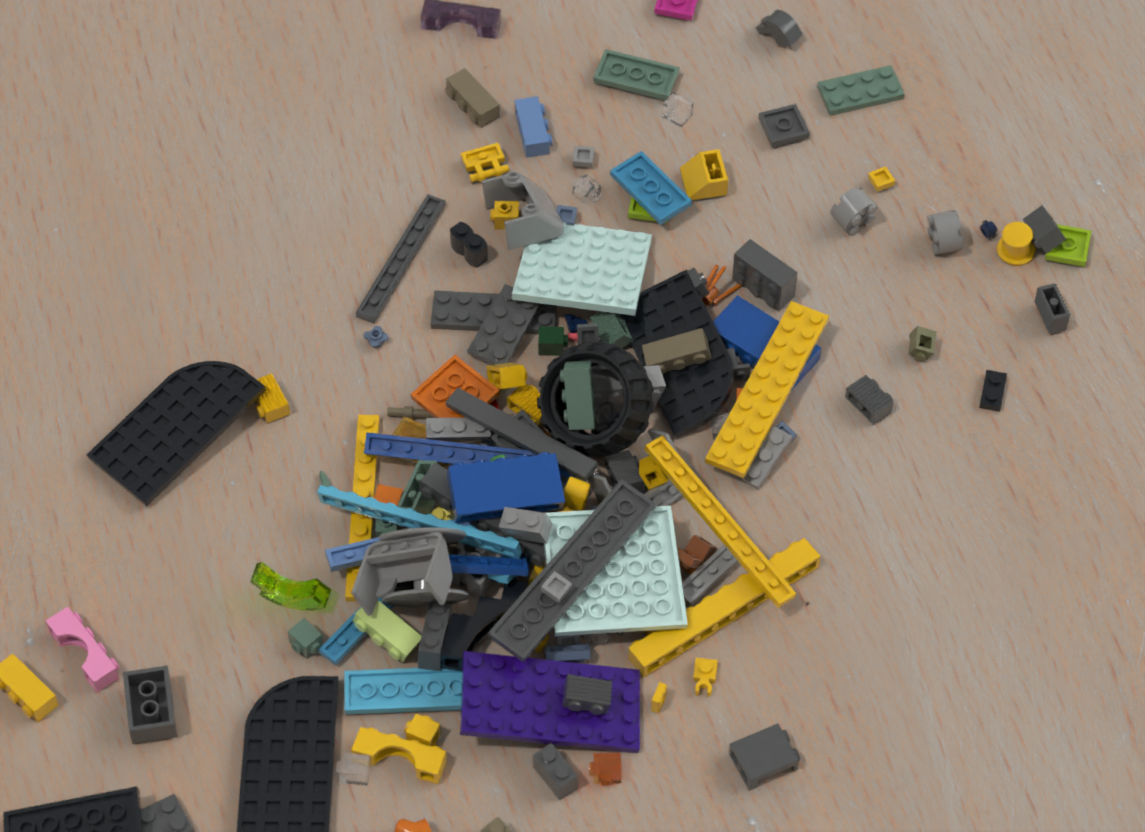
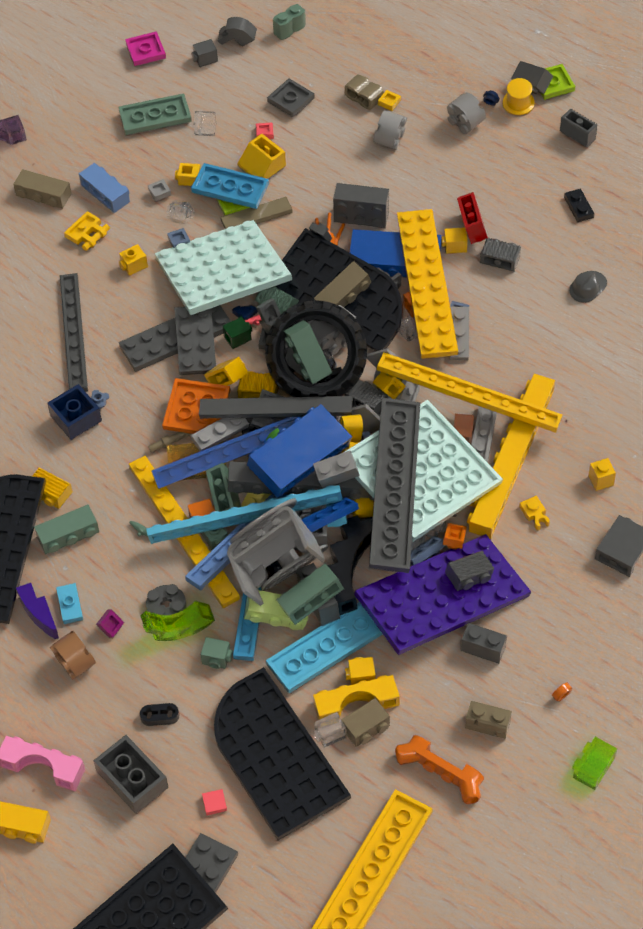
camera: 30 degrees left, 0 degrees up
(176, 566) = (72, 655): none -> medium nougat brick
(179, 506) = (37, 609): none -> dark purple slope
(207, 773) = (214, 802): none -> coral tile
(212, 518) = (69, 603): none -> medium azure plate
(215, 668) = (159, 714): none -> black beam
(232, 556) = (110, 623): none -> magenta plate
(257, 446) = (66, 529): none -> sand green brick
(297, 555) = (165, 593): none -> dark grey plate
(342, 337) = (74, 411): none -> dark blue brick
(391, 781) = (366, 722): none -> dark tan brick
(418, 630) = (310, 594): none -> sand green brick
(468, 244) = (121, 295): black brick -> none
(538, 218) = (168, 248): light grey windscreen -> none
(556, 587) = (396, 501): light grey plate -> none
(605, 653) = (454, 536): none -> orange plate
(606, 768) = (519, 619): clear orange brick -> none
(620, 152) = (187, 173): none -> yellow brick
(659, 697) = (516, 546): yellow tile -> none
(667, 232) = (263, 213): none -> dark tan tile
(731, 34) = (204, 53): none -> dark grey brick
(732, 147) = (265, 129): none -> coral tile
(796, 675) = (602, 474): none -> yellow brick
(834, 360) = (454, 240): none -> yellow brick
(841, 43) = (289, 21): none -> sand green brick
(860, 90) = (326, 48): sand green plate -> none
(861, 156) = (363, 91): none -> dark tan brick
(865, 346) = (472, 218): none -> red brick
(922, 343) = (507, 197): olive brick -> none
(936, 479) = (587, 286): none -> dark grey piece

